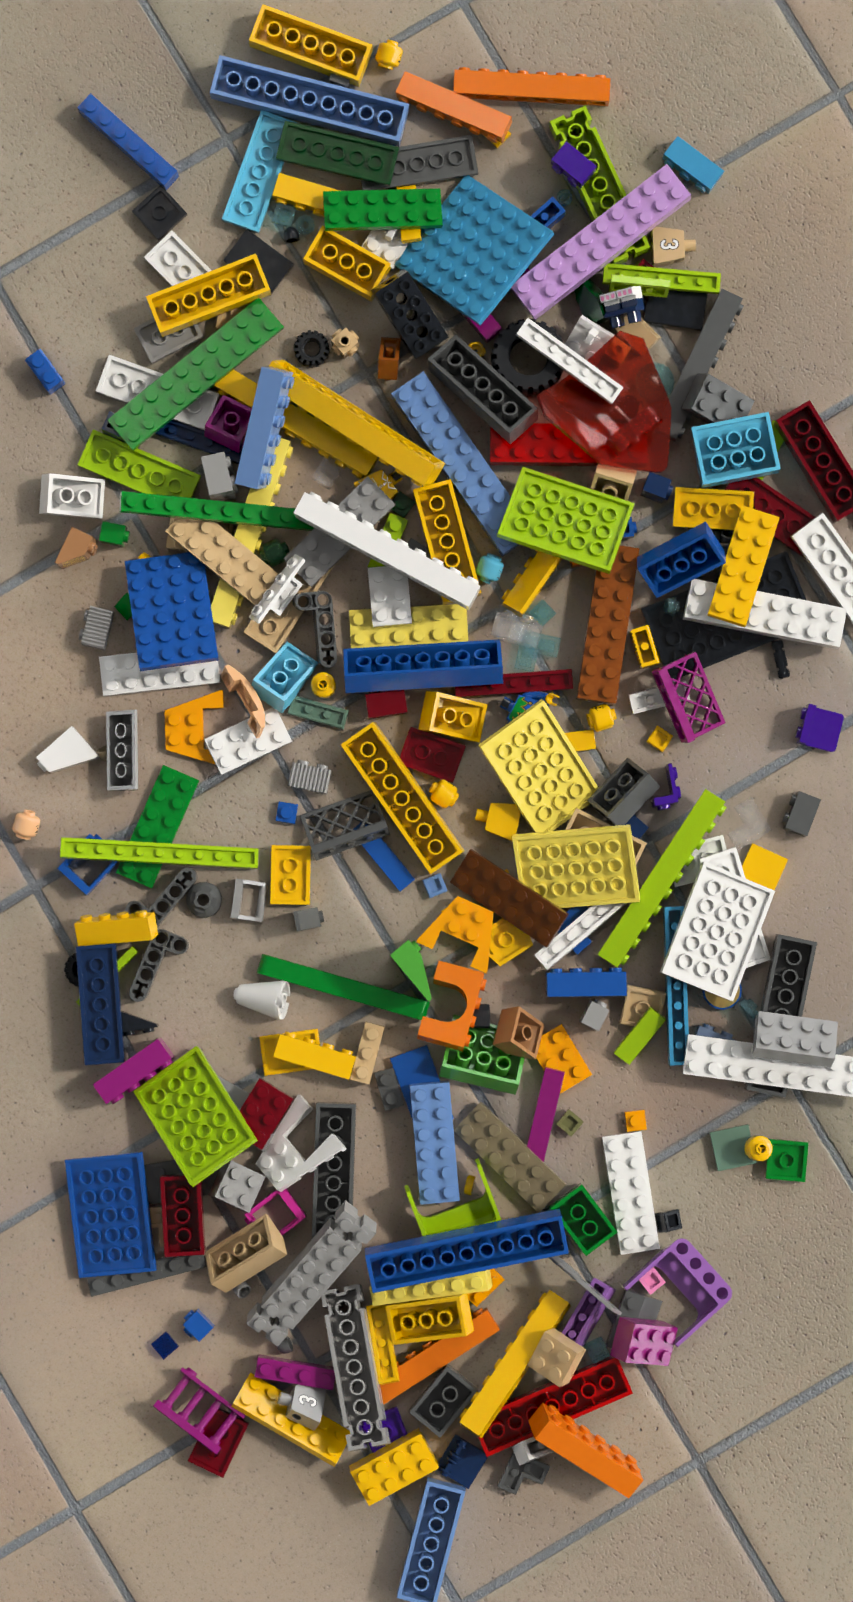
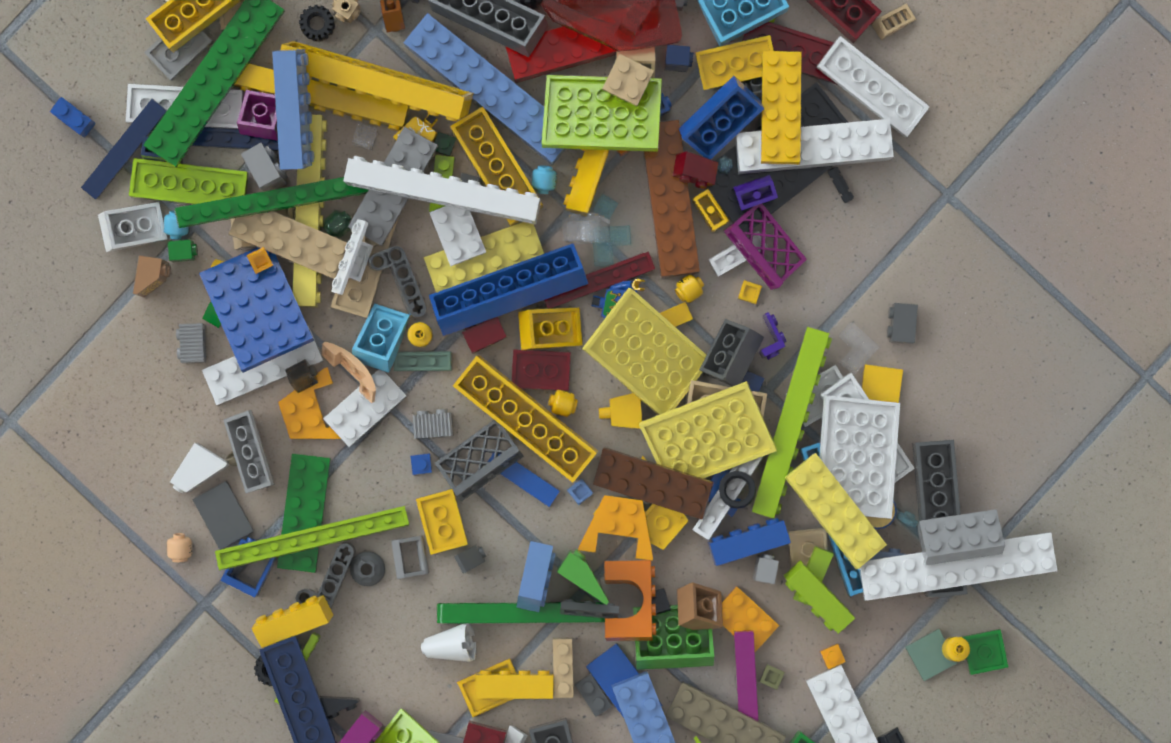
camera: 20 degrees left, 0 degrees up
(78, 805) = (223, 515): none -> dark grey tile
(86, 417) = (124, 149): none -> dark blue tile
(111, 507) = (171, 227): none -> medium azure head
(146, 963) = (338, 646): dark grey beam -> none
(188, 566) = (259, 260): none -> light orange plate
(195, 691) = (302, 375): none -> clear smoke brick
(367, 955) = (536, 577): none -> medium blue brick
(410, 1002) = (589, 609): none -> dark grey plate
(589, 913) = (741, 475): none -> black tyre
(600, 495) = (628, 80): none -> tan plate
(640, 1060) = (822, 600): none -> lime brick
(641, 602) = (695, 169): none -> dark red brick
(679, 977) = (835, 511): none -> light yellow plate
(693, 642) = (755, 192): none -> dark purple brick
(819, 728) = (896, 238): dark purple bracket -> none

